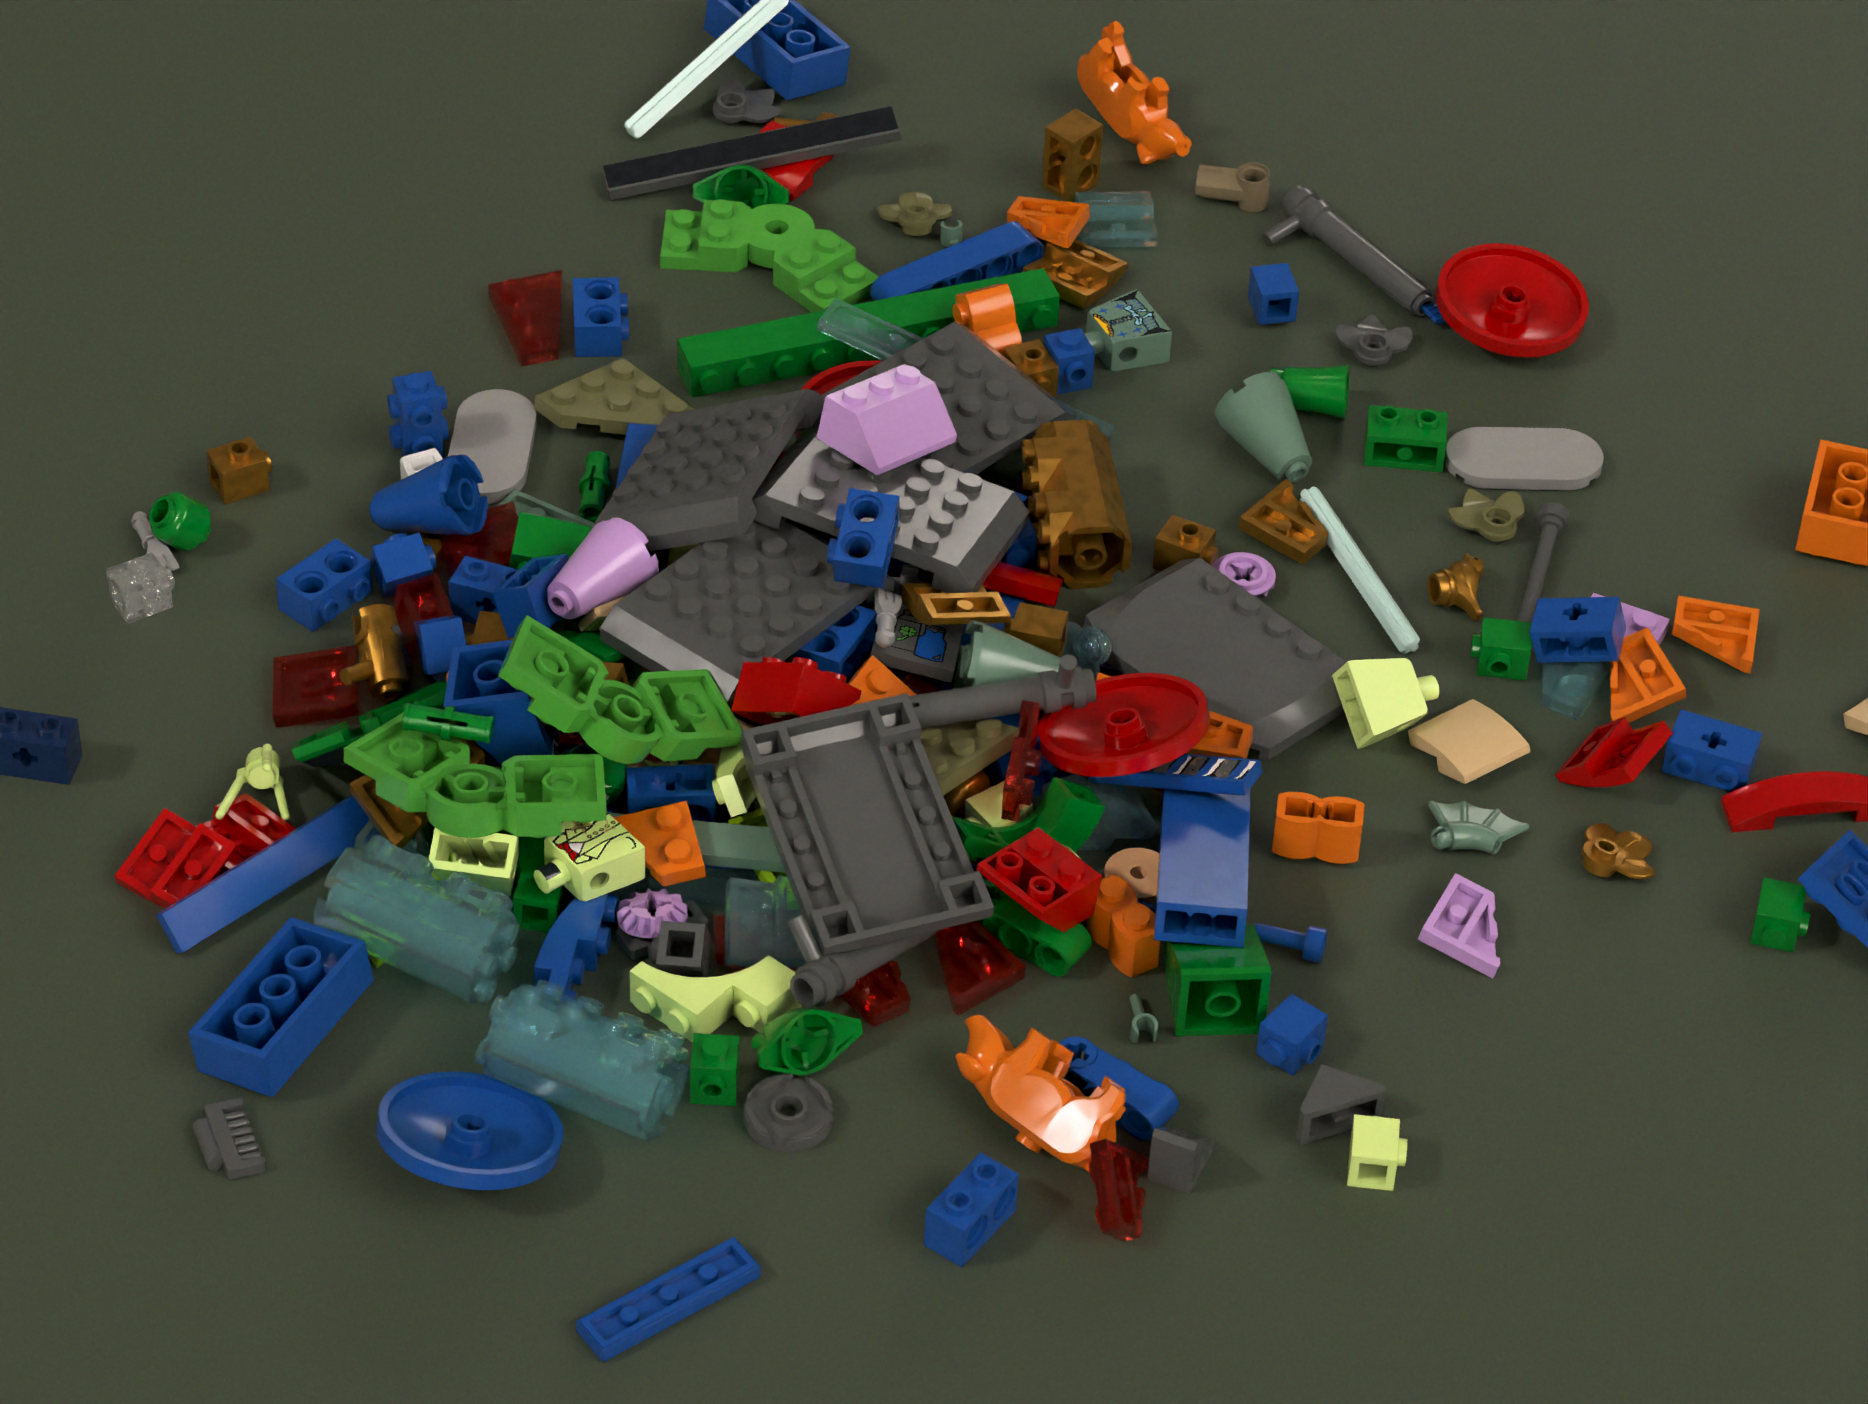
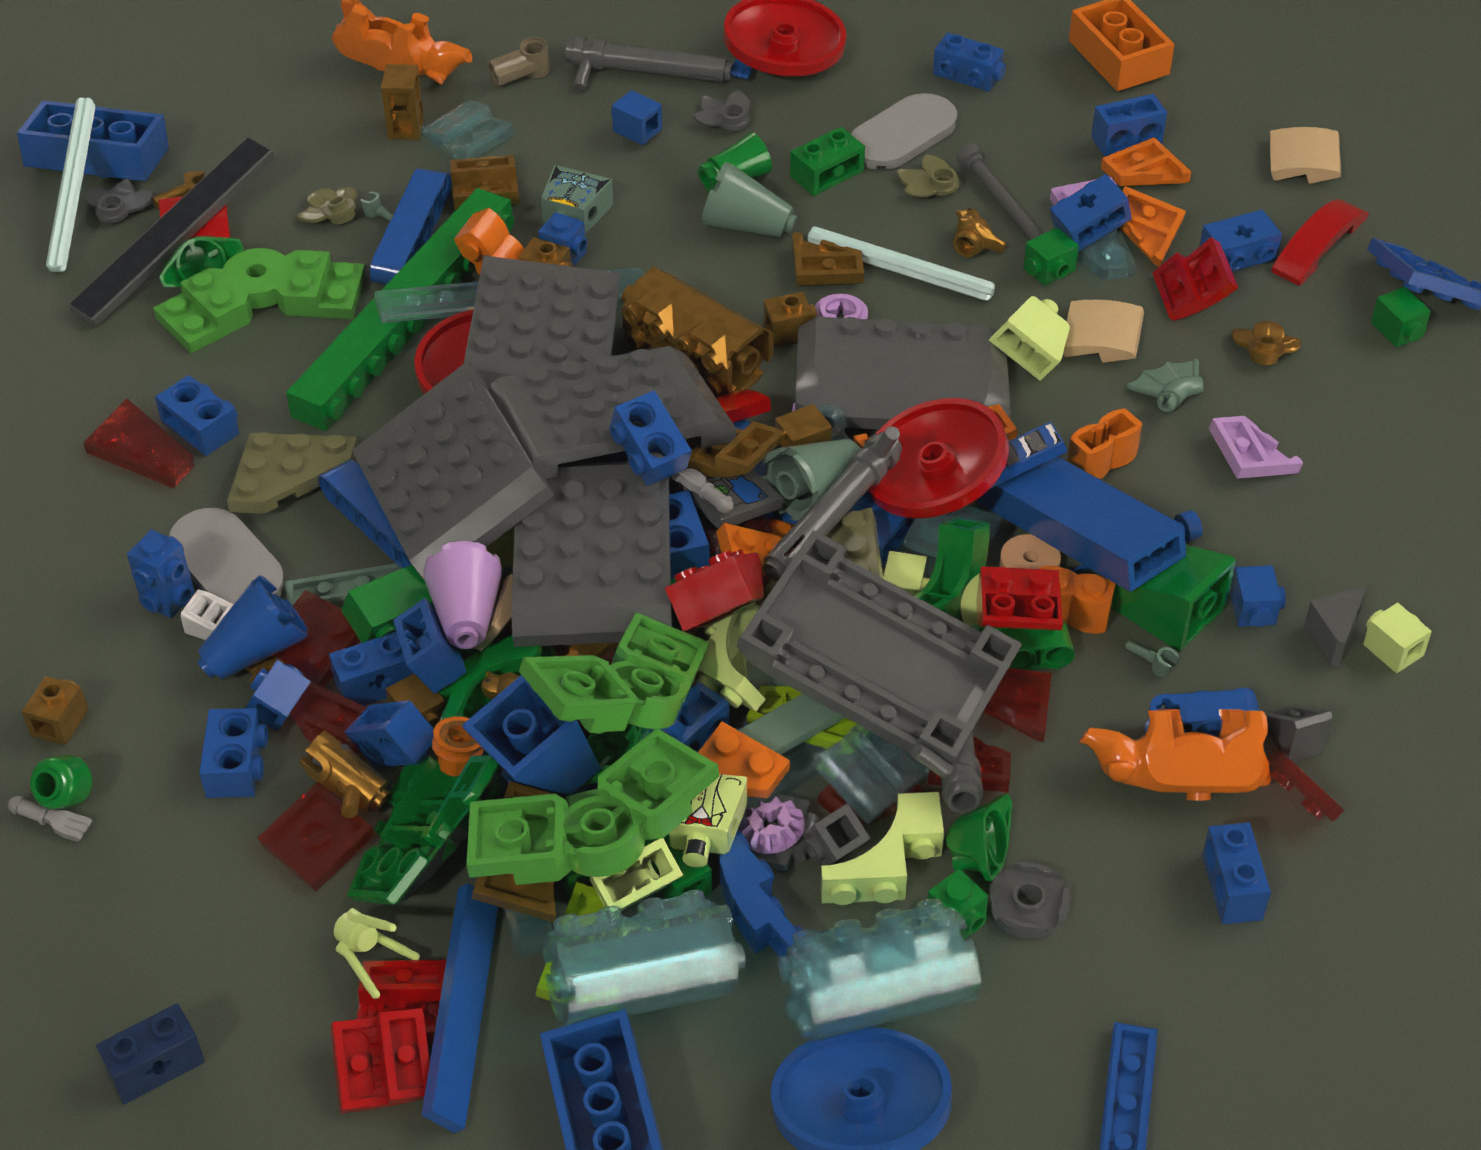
camera: 40 degrees left, 5 degrees up
(140, 587) = (90, 858): clear brick -> none
(418, 719) = (504, 798): green pin -> none
(594, 485) = (343, 539): green pin -> none
(887, 420) = (550, 348): lavender slope -> none
(1024, 762) = (904, 530): clear red wing -> none
(1050, 219) = (434, 153): orange wing -> none
(1670, 432) = (969, 62): none -> blue brick
(1744, 578) = (1128, 123): none -> blue brick

